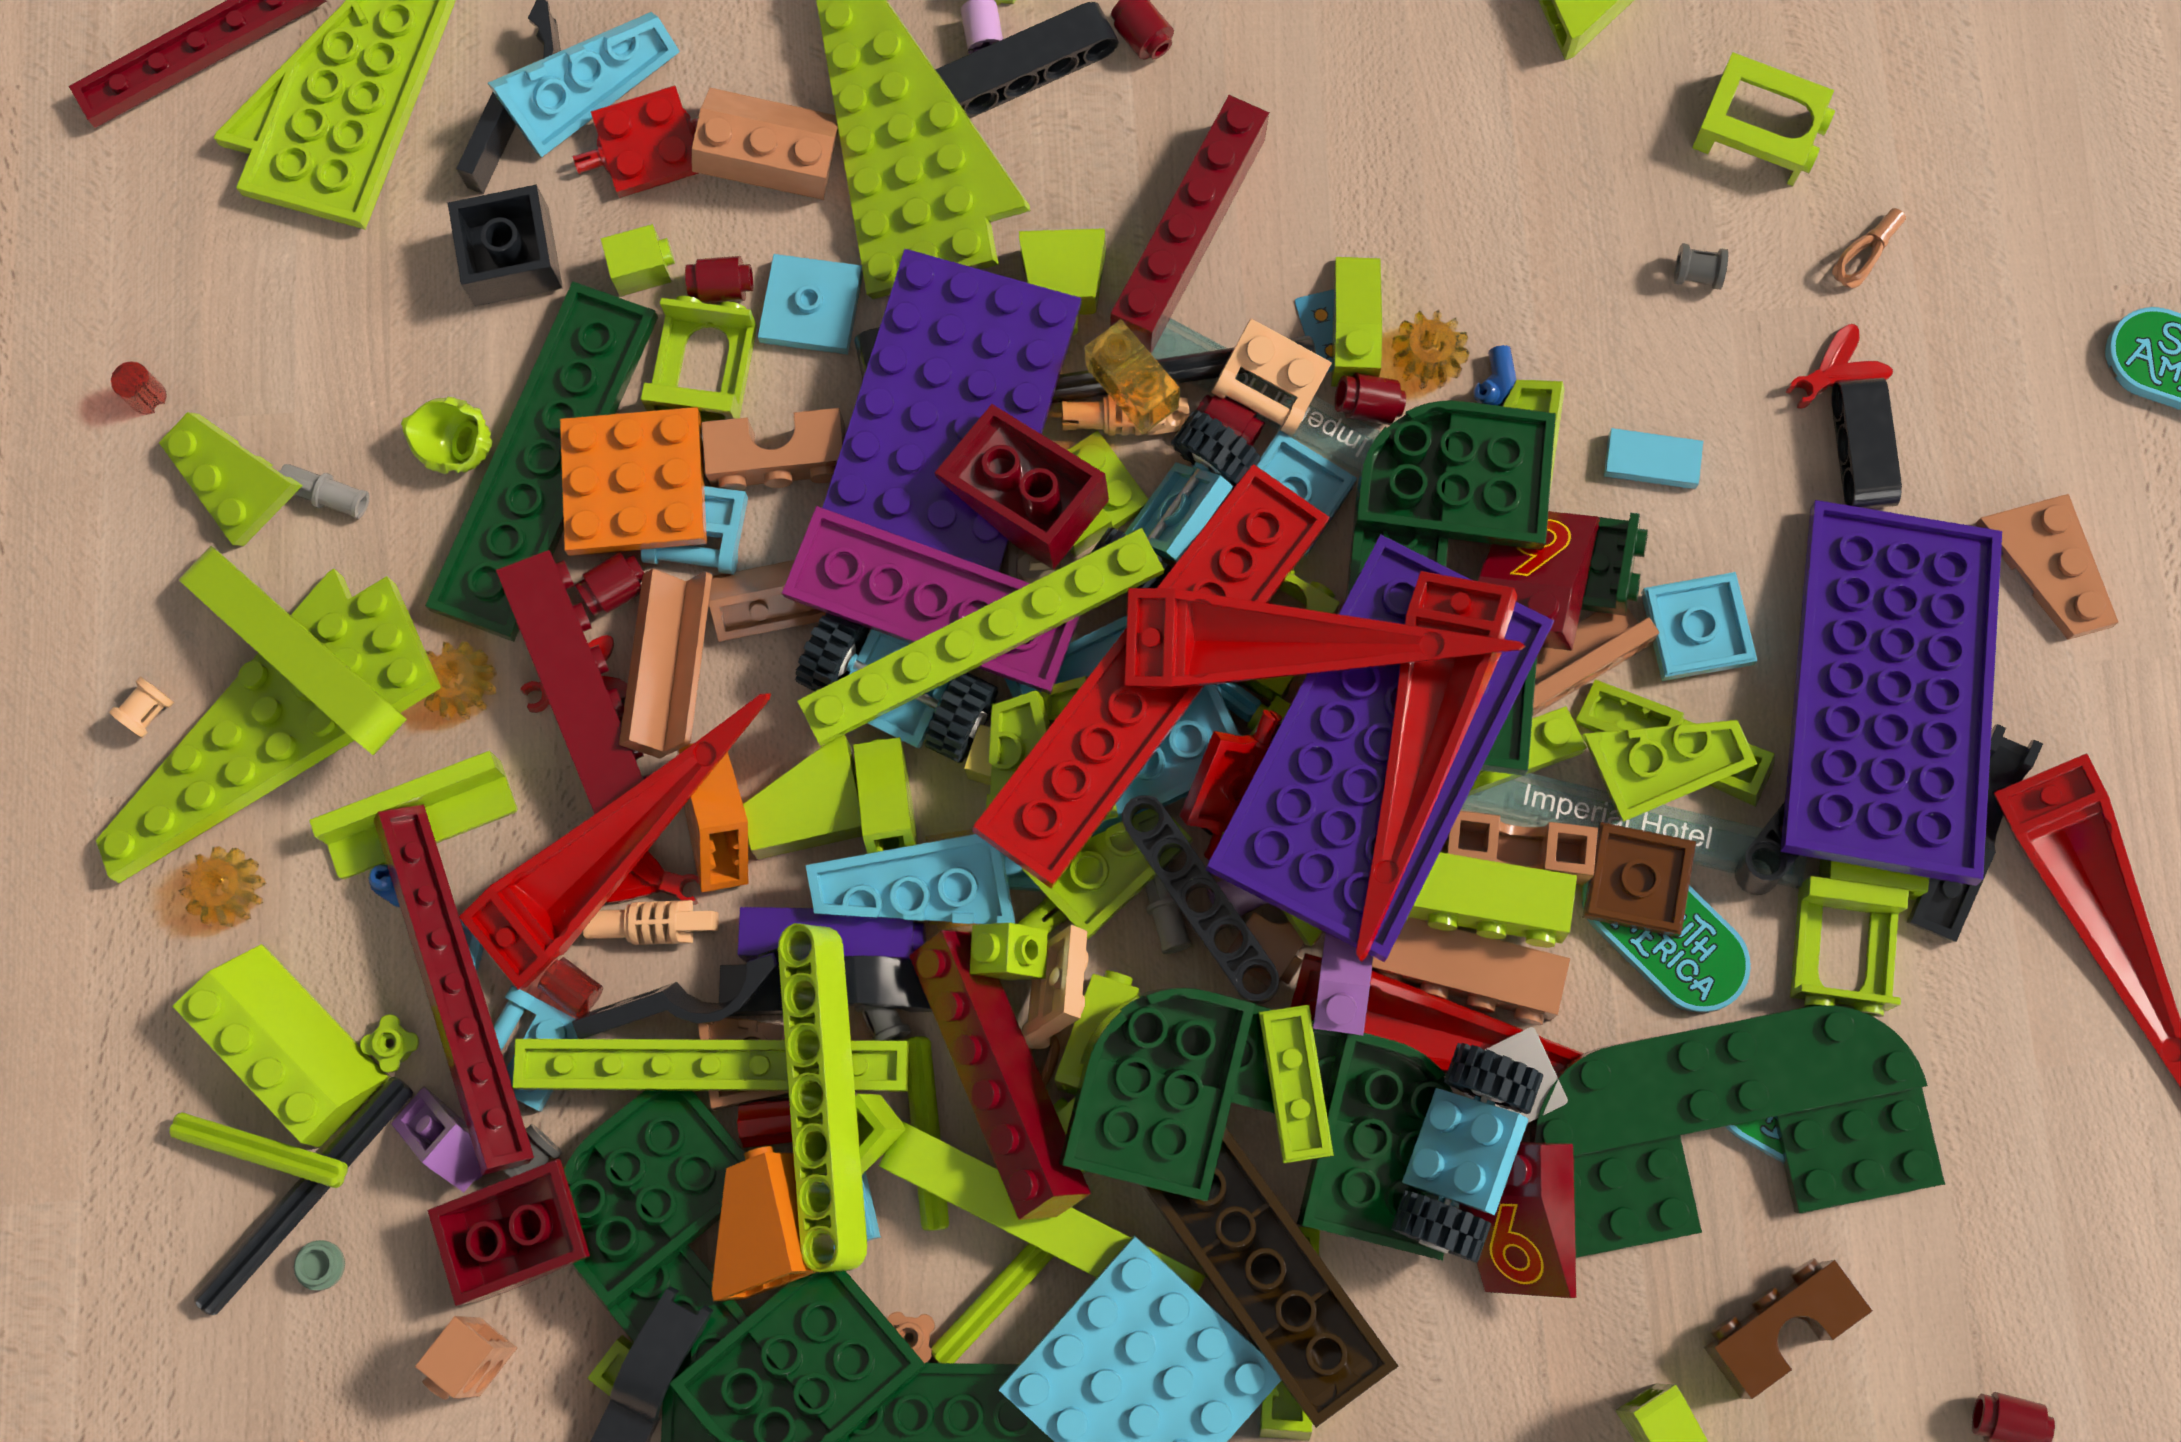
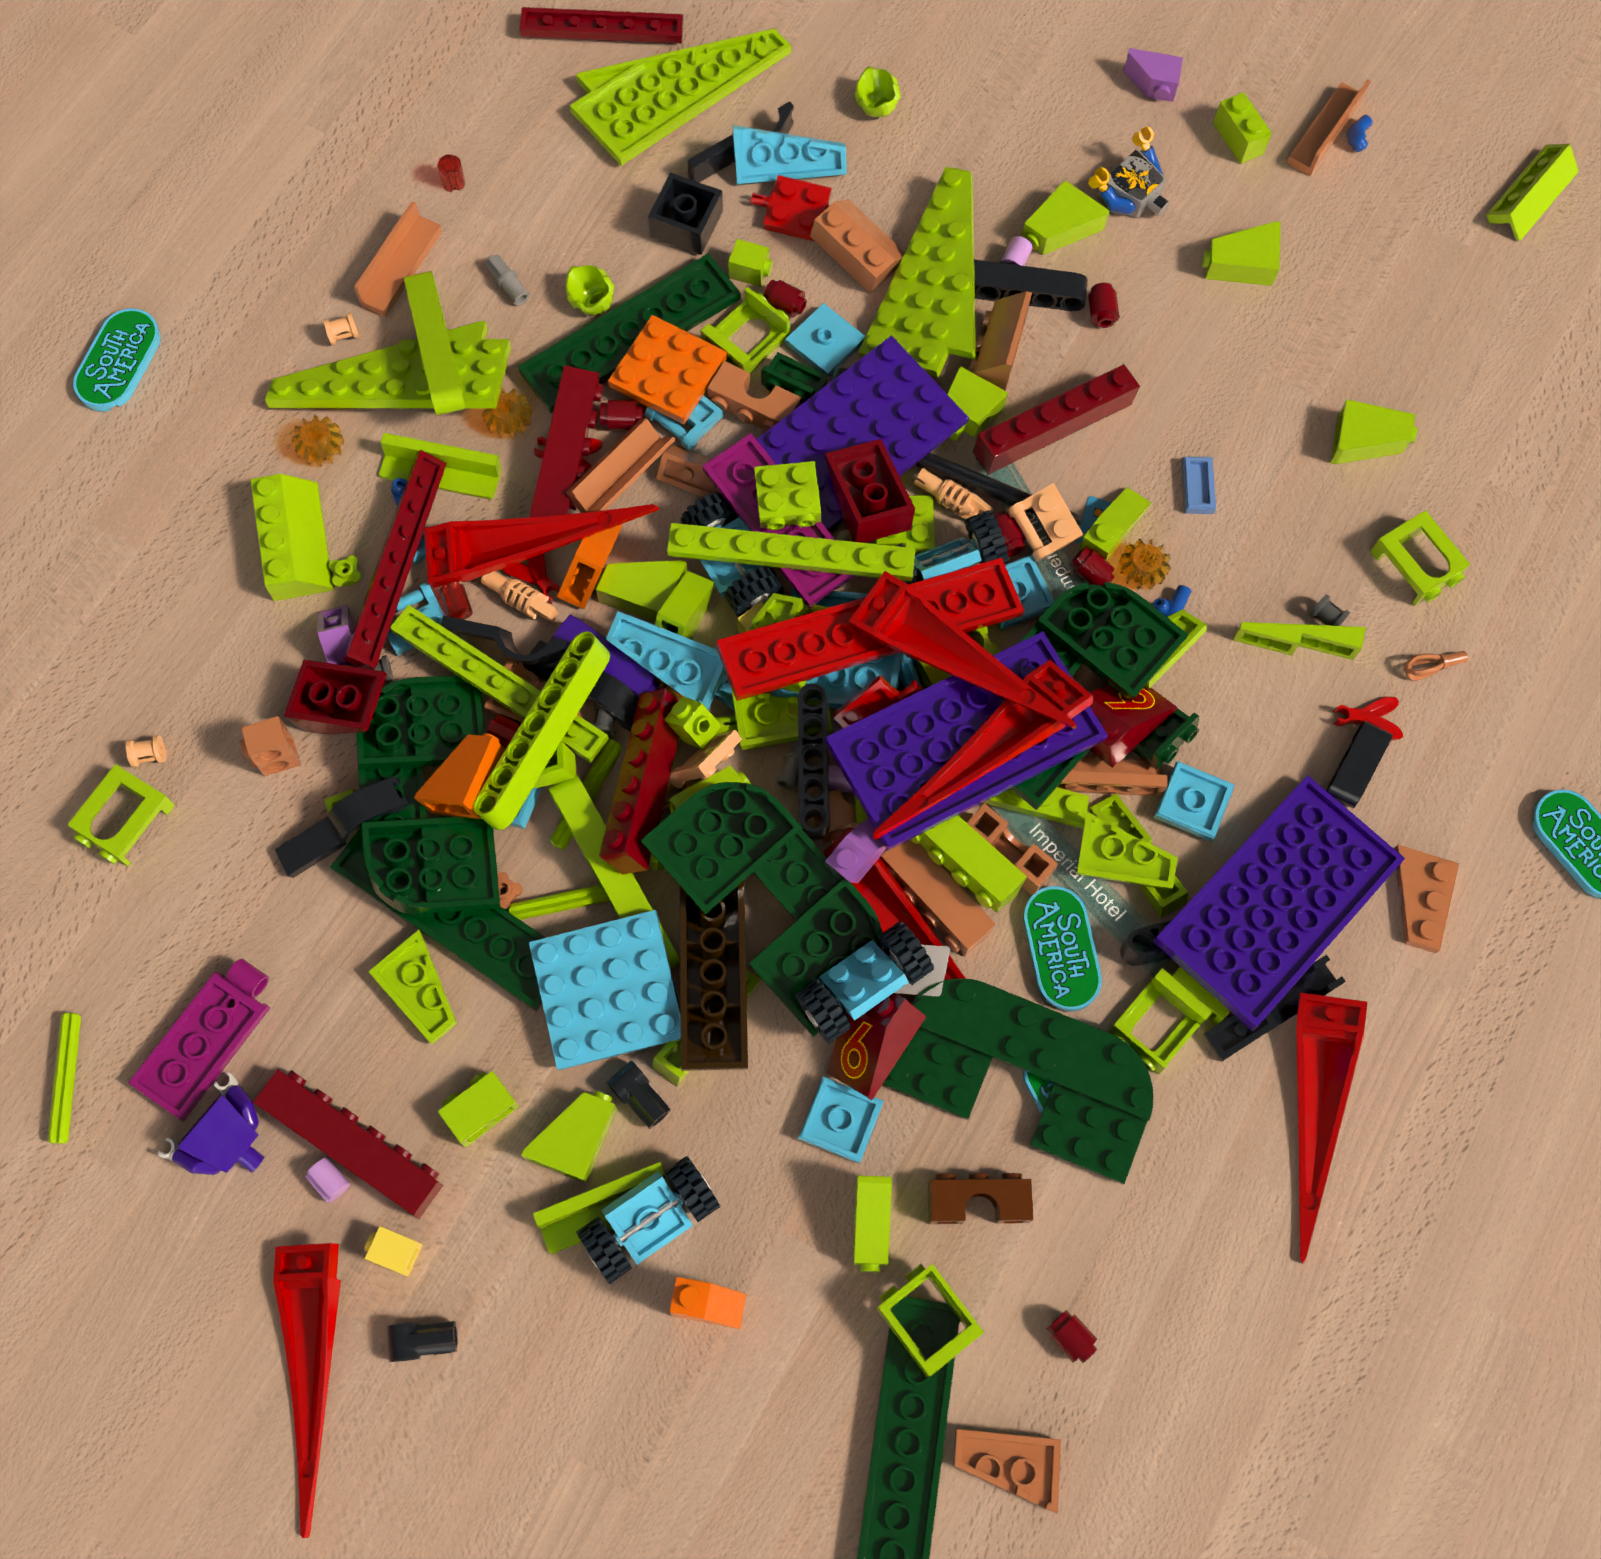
camera: 25 degrees right, 5 degrees down
(152, 561) = (396, 259): none -> nougat panel
(229, 480) = (464, 246): lime wing -> none
(258, 1150) = (242, 580): lime axle -> none
(300, 1199) = (248, 618): black axle -> none
(319, 1265) = (232, 657): sand green plate -> none
(808, 386) = (792, 377): none -> dark green bracket
(925, 562) = (787, 495): none -> lime plate
(1046, 160) = (1001, 339): none -> nougat slope
(1132, 376) = (967, 473): clear yellow brick -> none
(1296, 1084) = (796, 885): lime tile -> none
(1423, 196) = (1198, 485): none -> medium blue tile
(1546, 1345) = (840, 1120): none -> medium azure plate
(1640, 879) = (1064, 910): reddish brown tile -> none
(1653, 458) = (1231, 698): medium azure tile -> none
(1674, 332) = (1285, 638): none -> lime slope

